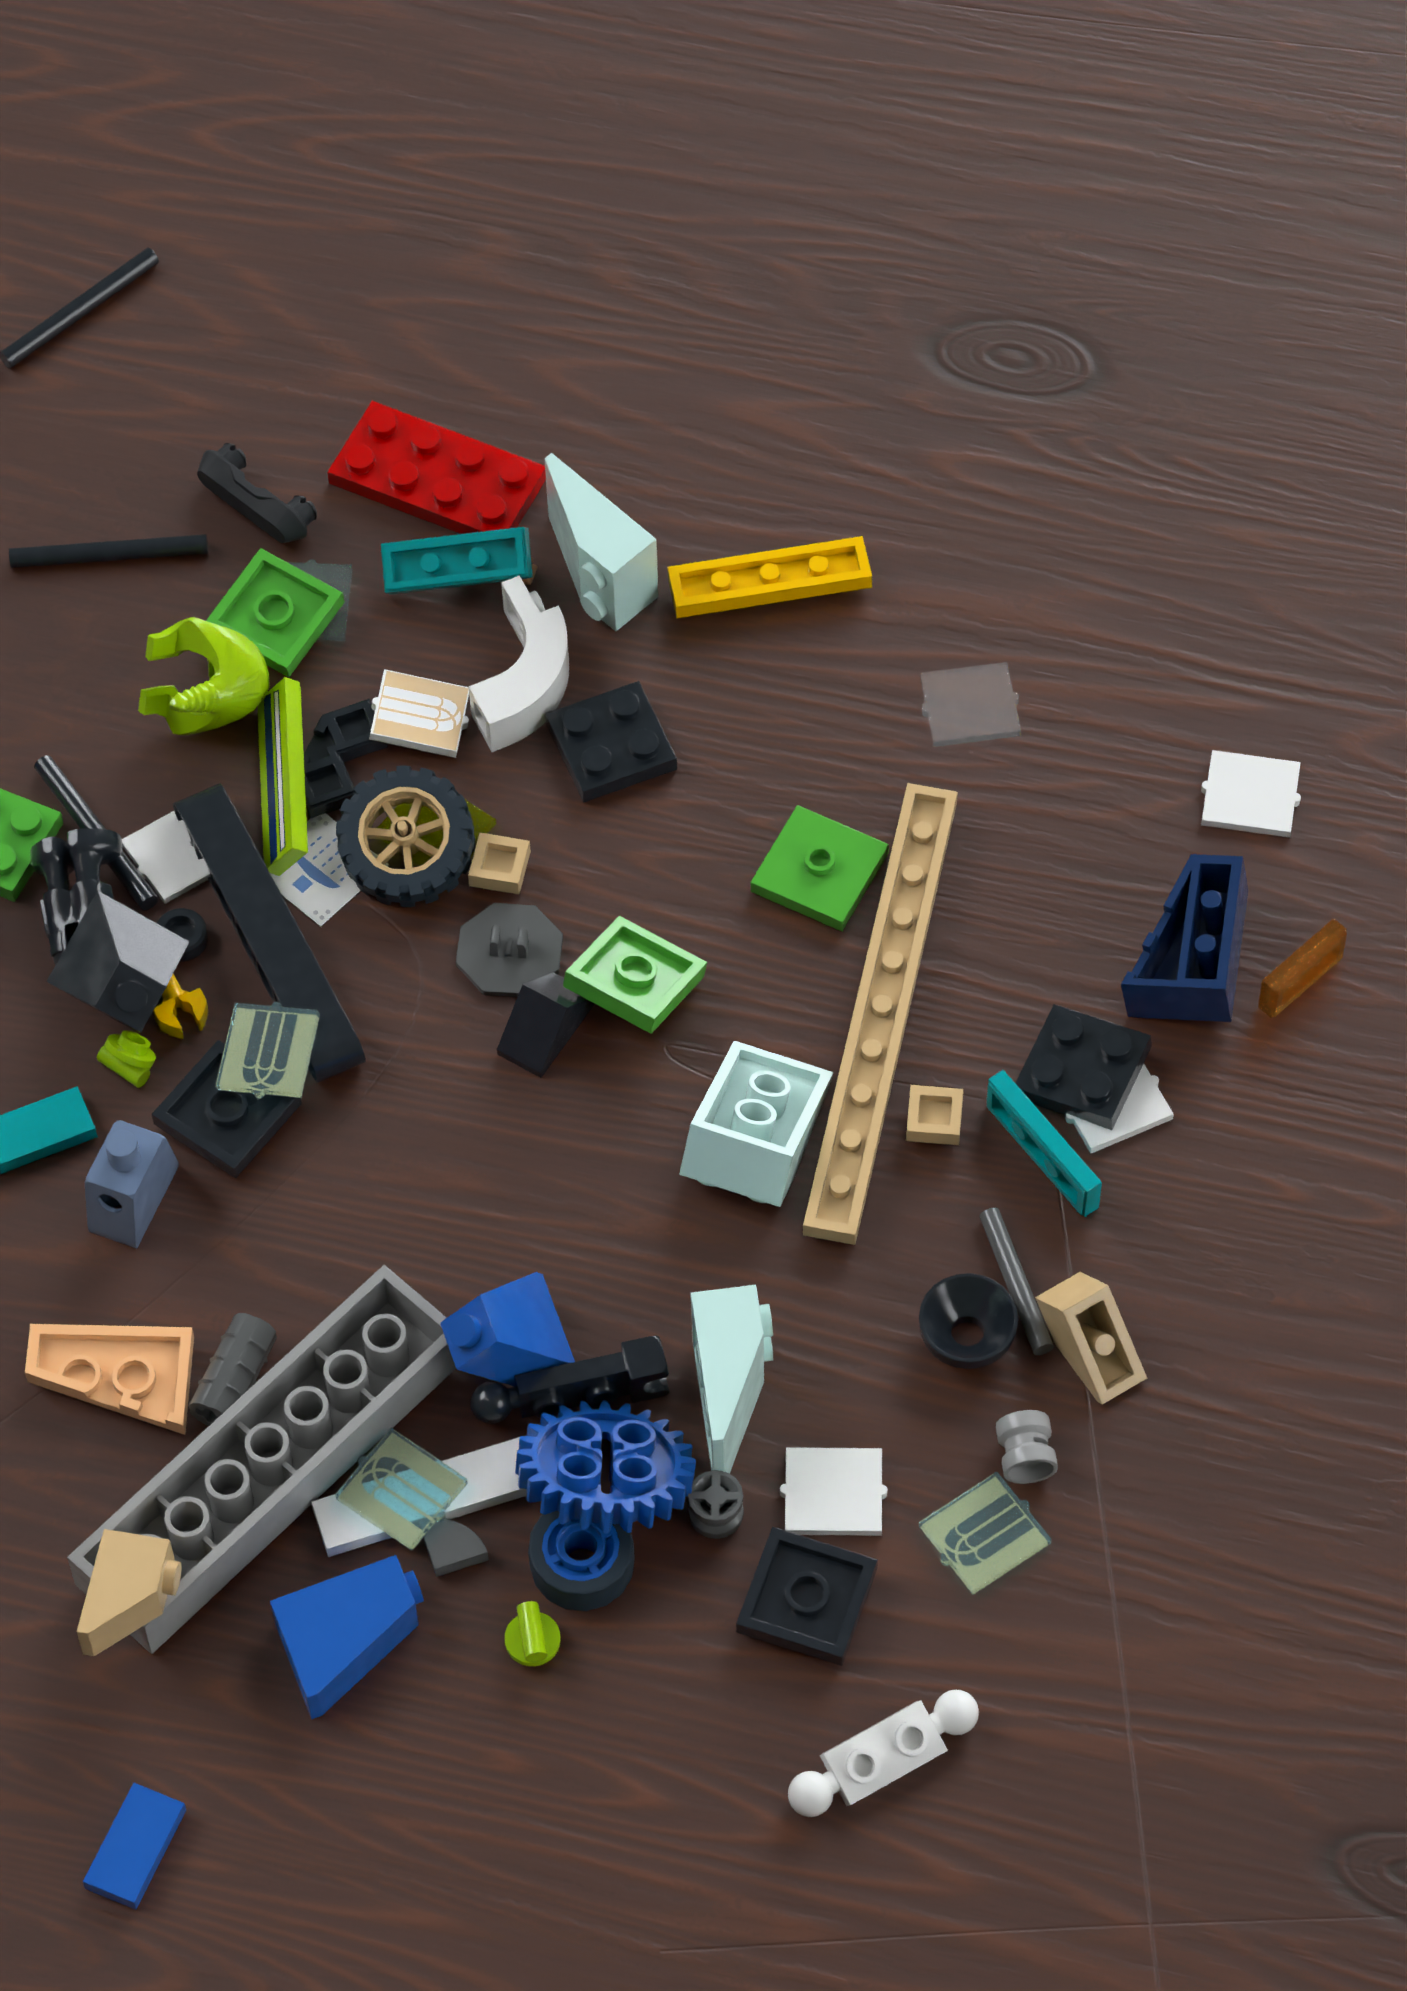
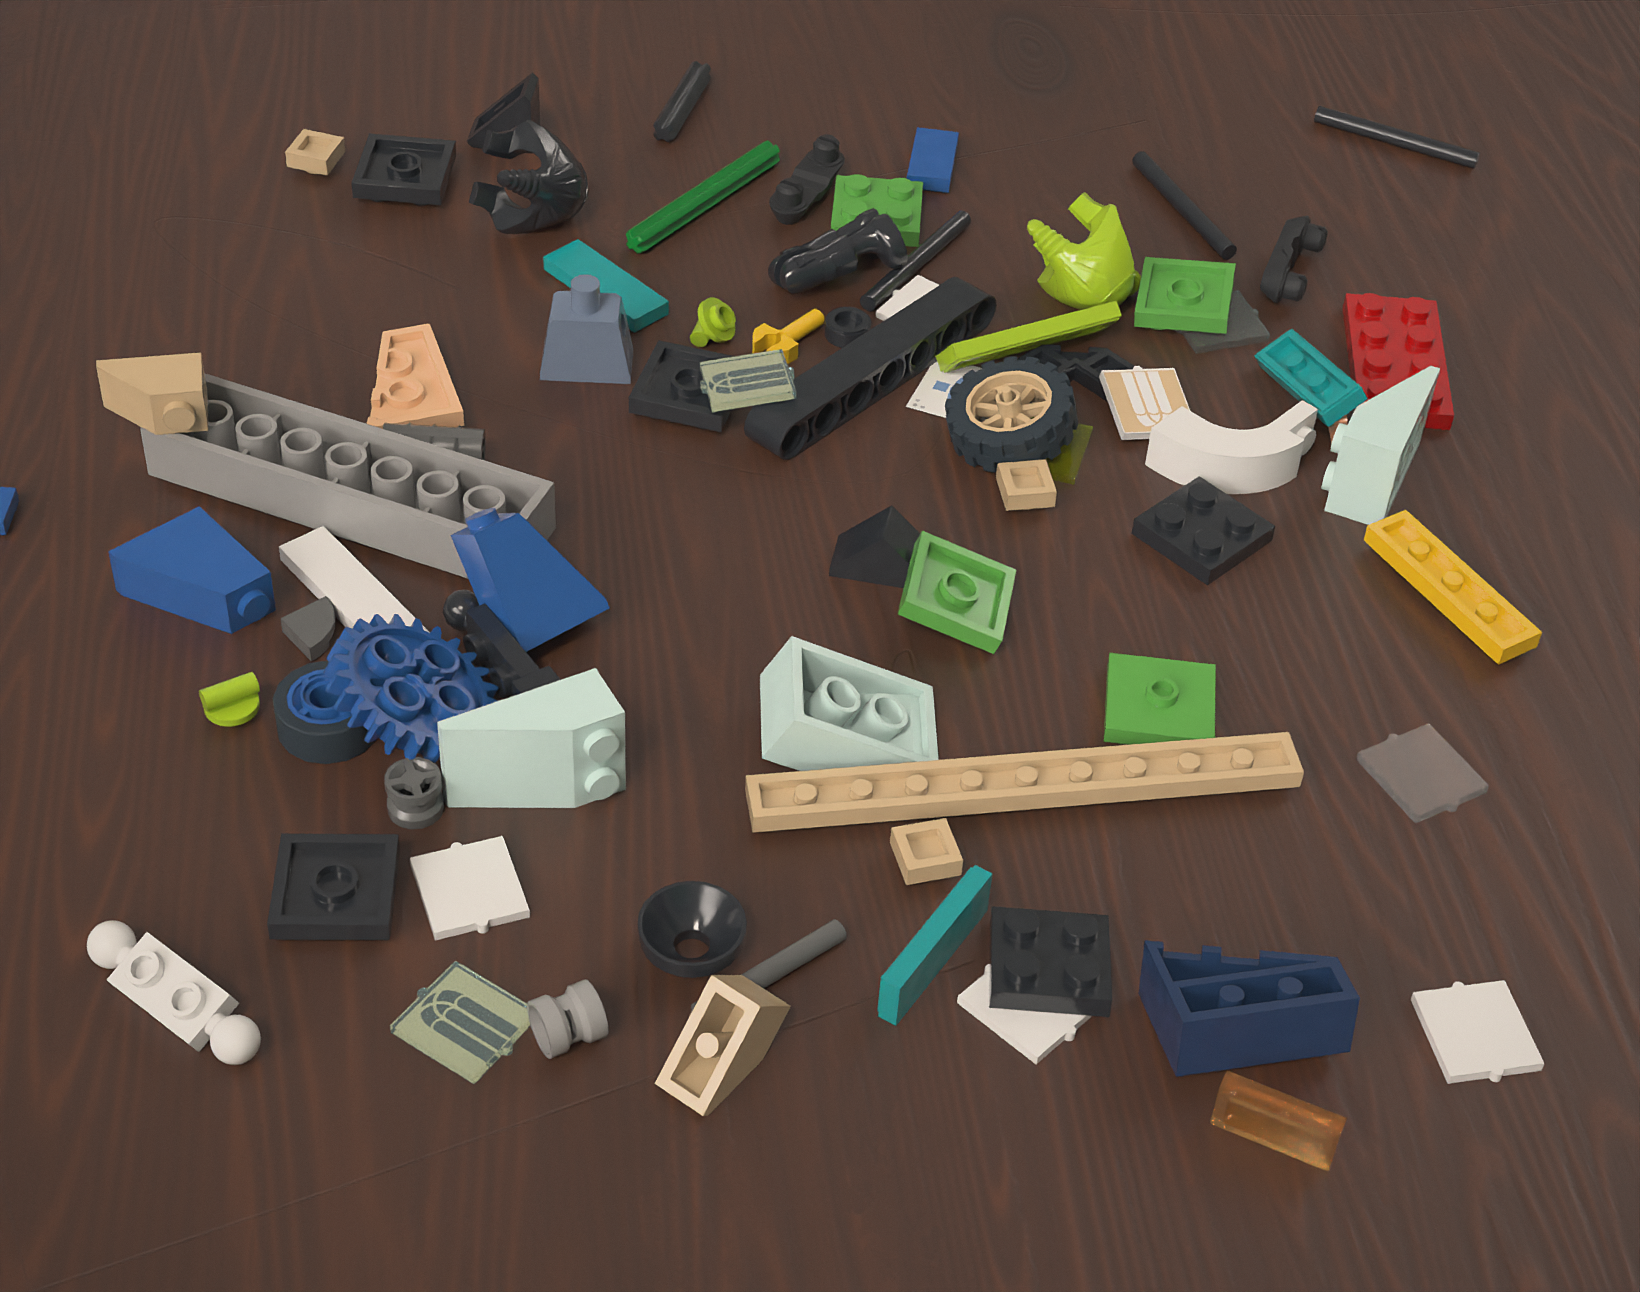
camera: 65 degrees right, 15 degrees down
(118, 962) = (782, 282): black slope -> none
(401, 1489) = (352, 574): clear light blue piece -> none
(508, 948) = (953, 516): dark grey piece -> none

